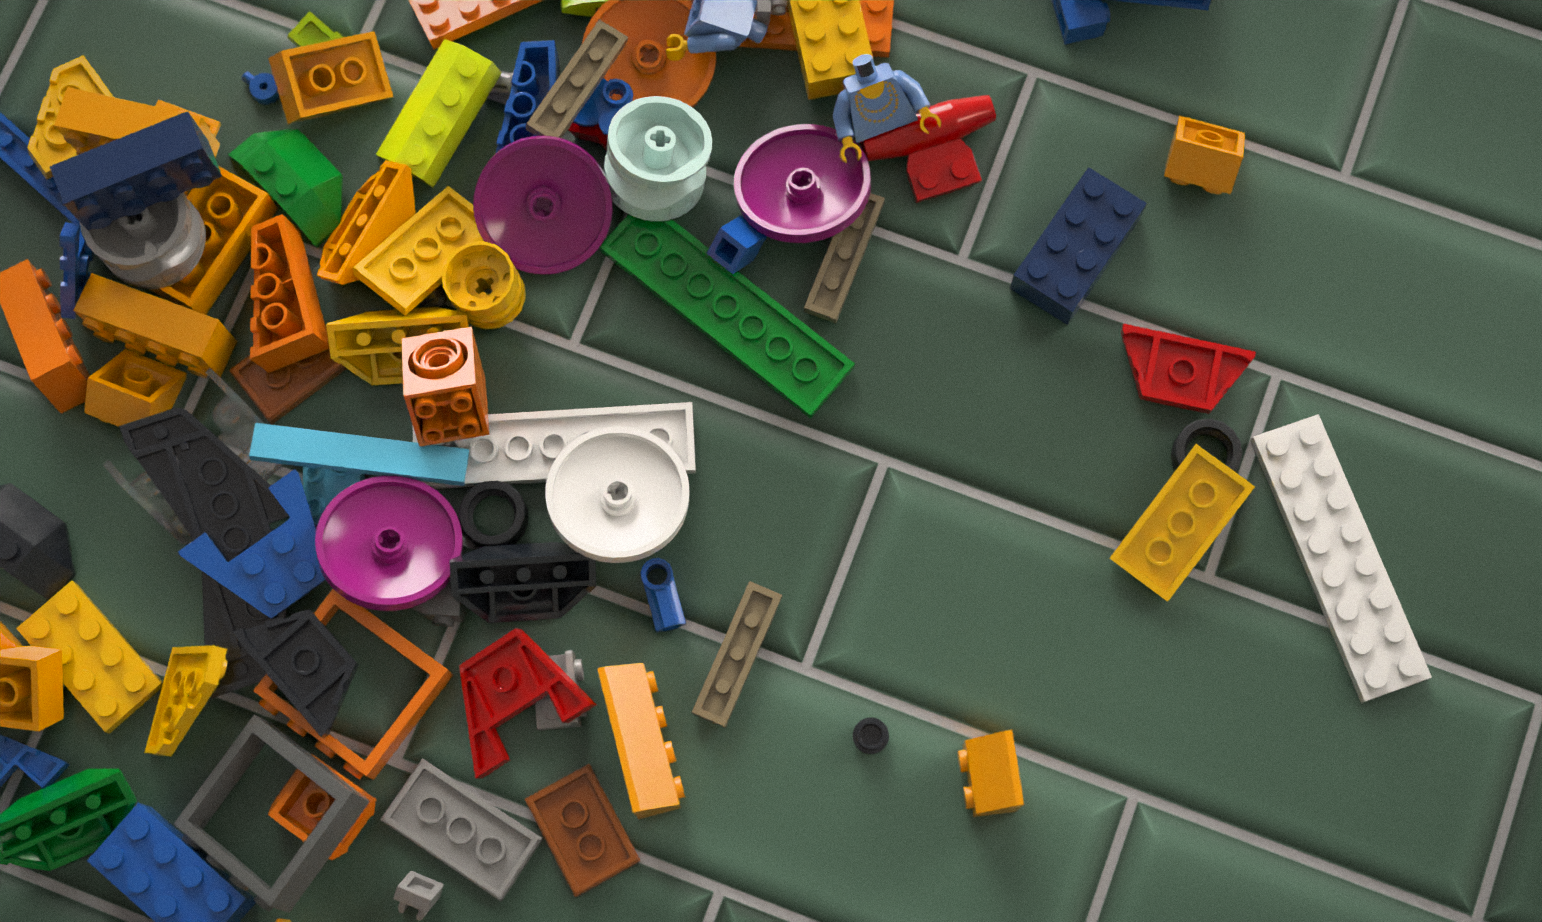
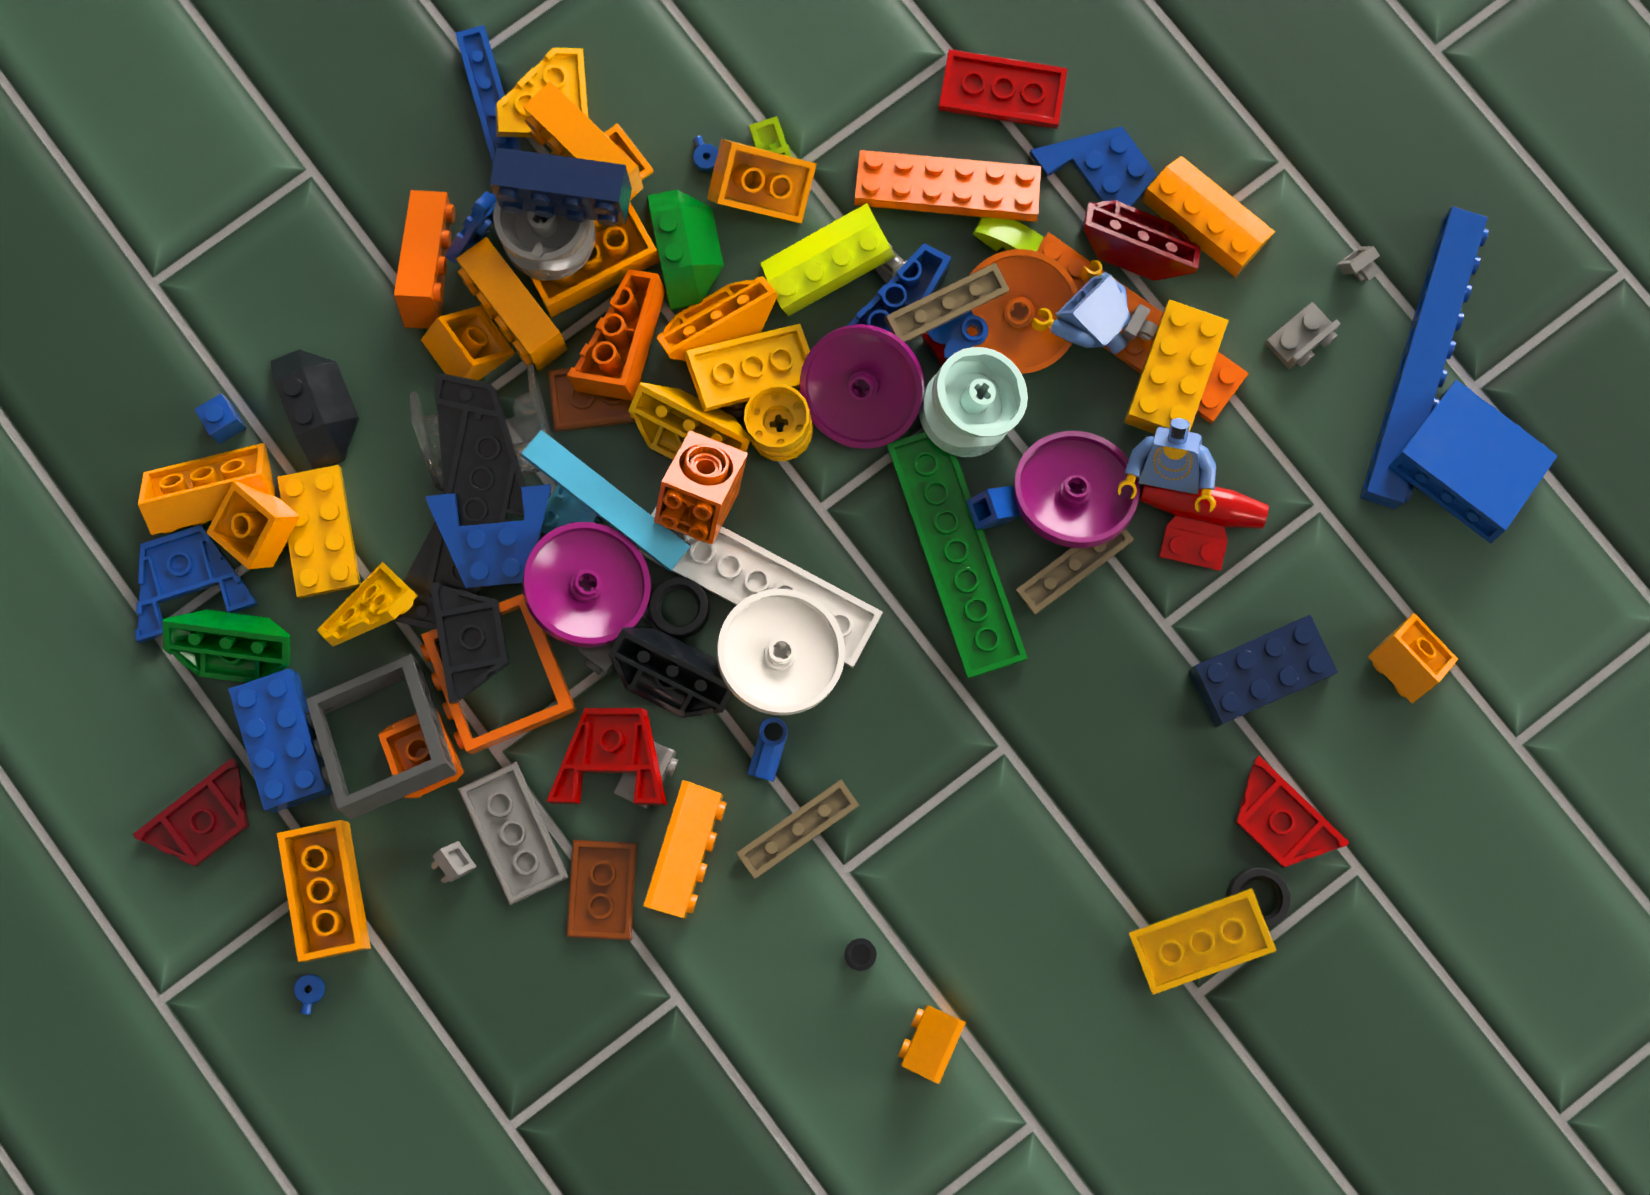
camera: 30 degrees right, 5 degrees up
(1340, 559) = (1311, 1044): white plate -> none

